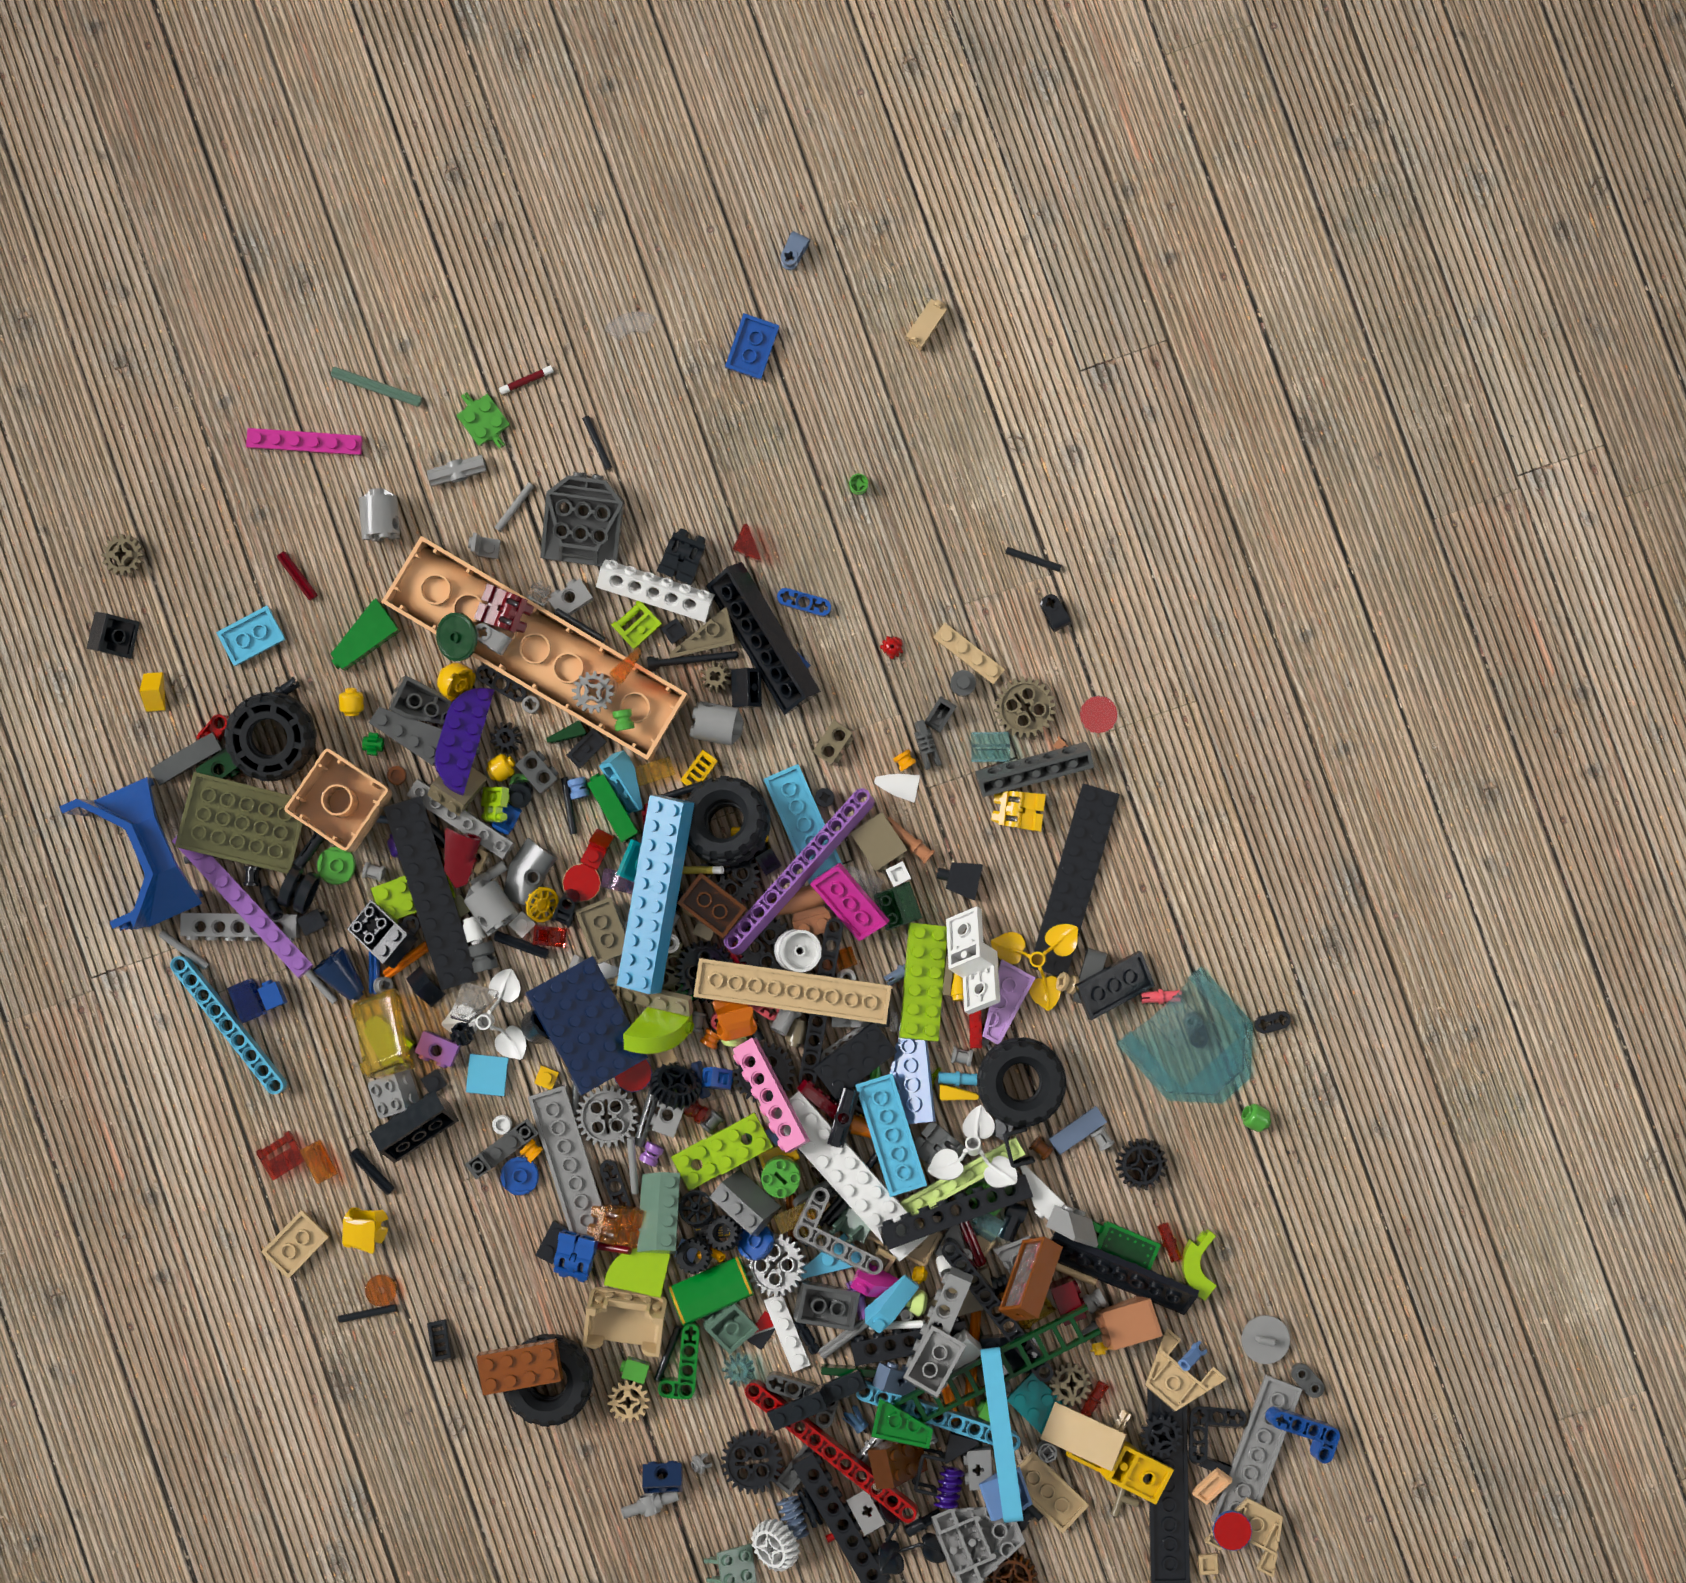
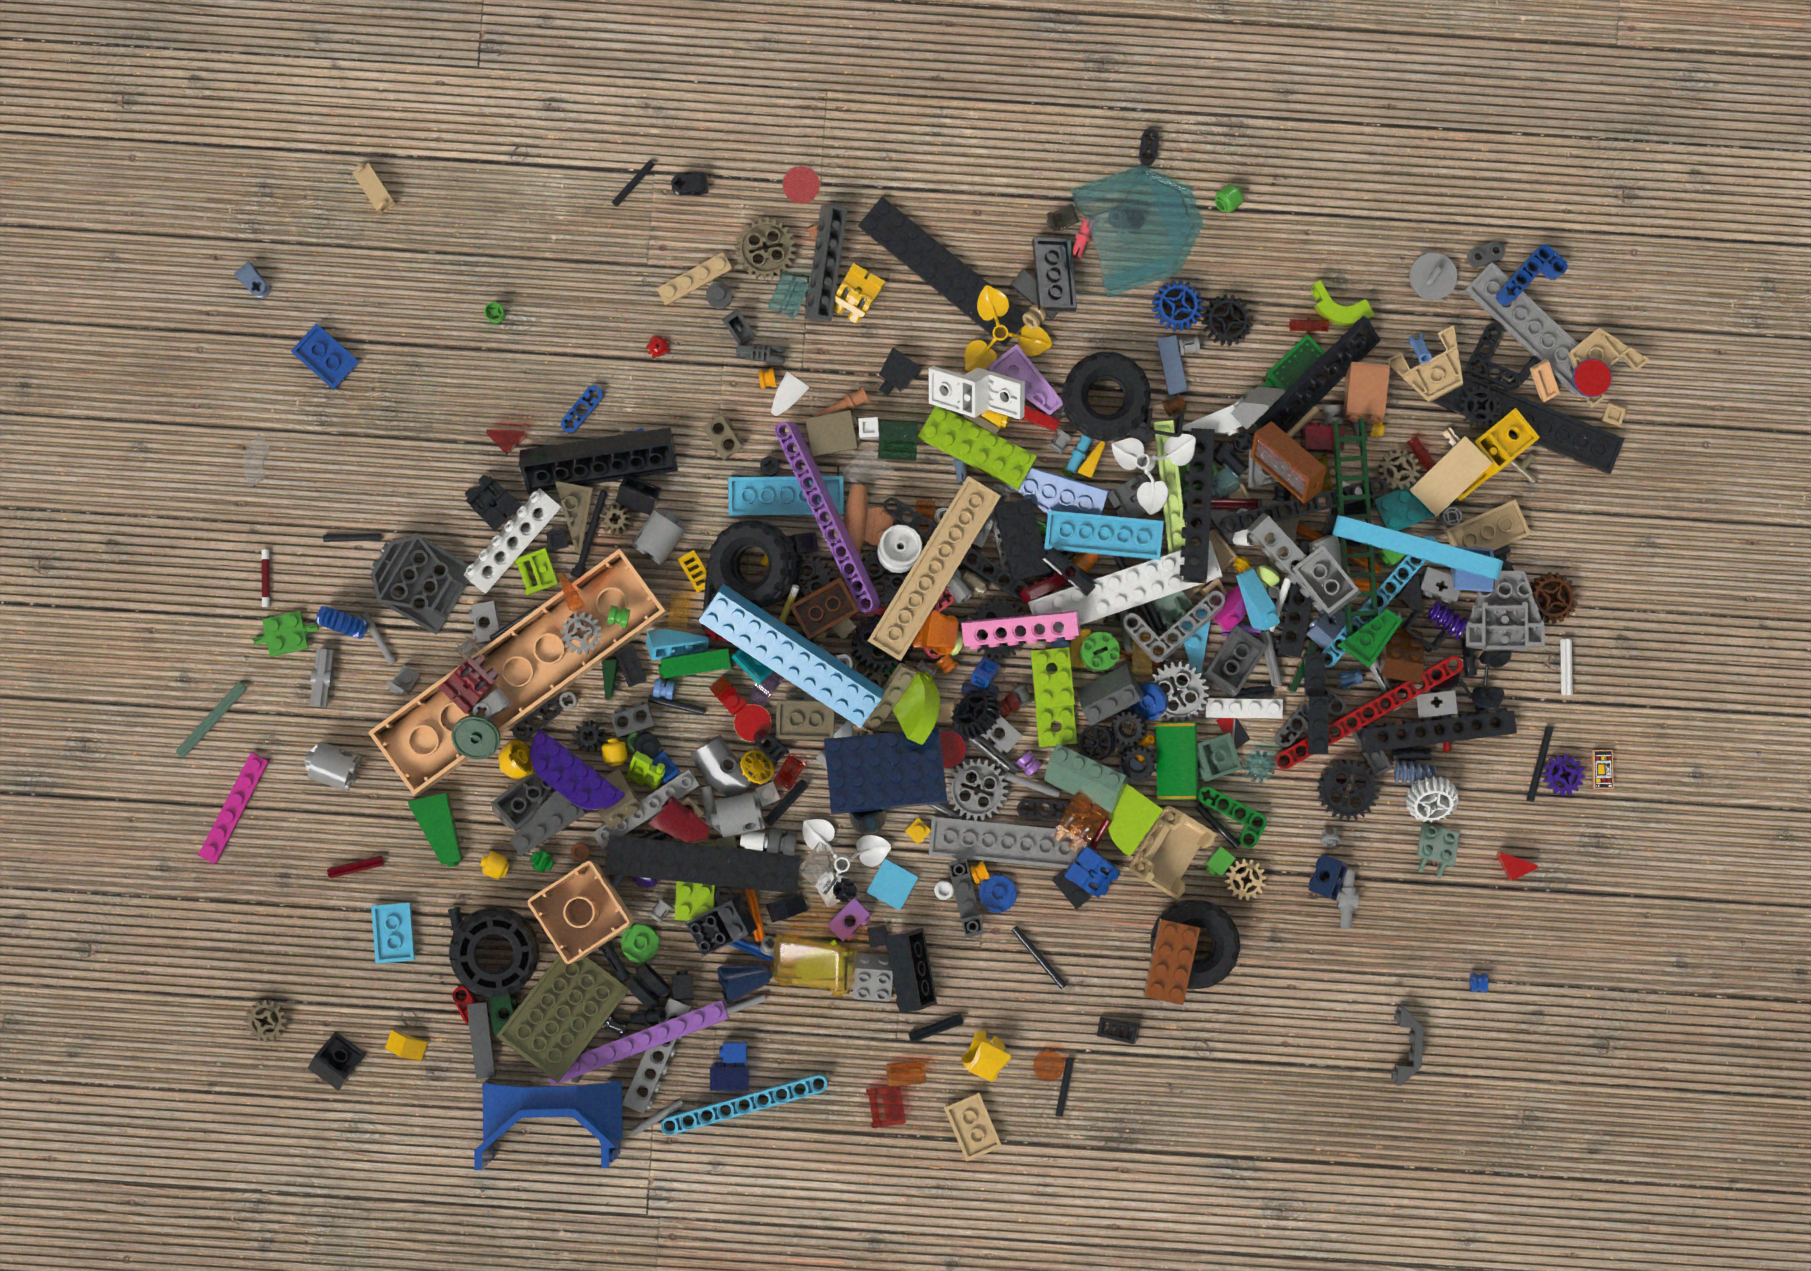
camera: 70 degrees left, 0 degrees up
(477, 1238) = (1039, 958): none -> black bar
(514, 467) = (342, 622): none -> blue gear
(849, 902) = (875, 482): dark pink plate -> none
(1033, 1230) = (1244, 439): none -> black wheel
(1135, 1121) = (1185, 308): none -> blue gear
(1170, 970) = (1062, 218): none -> clear smoke bracket

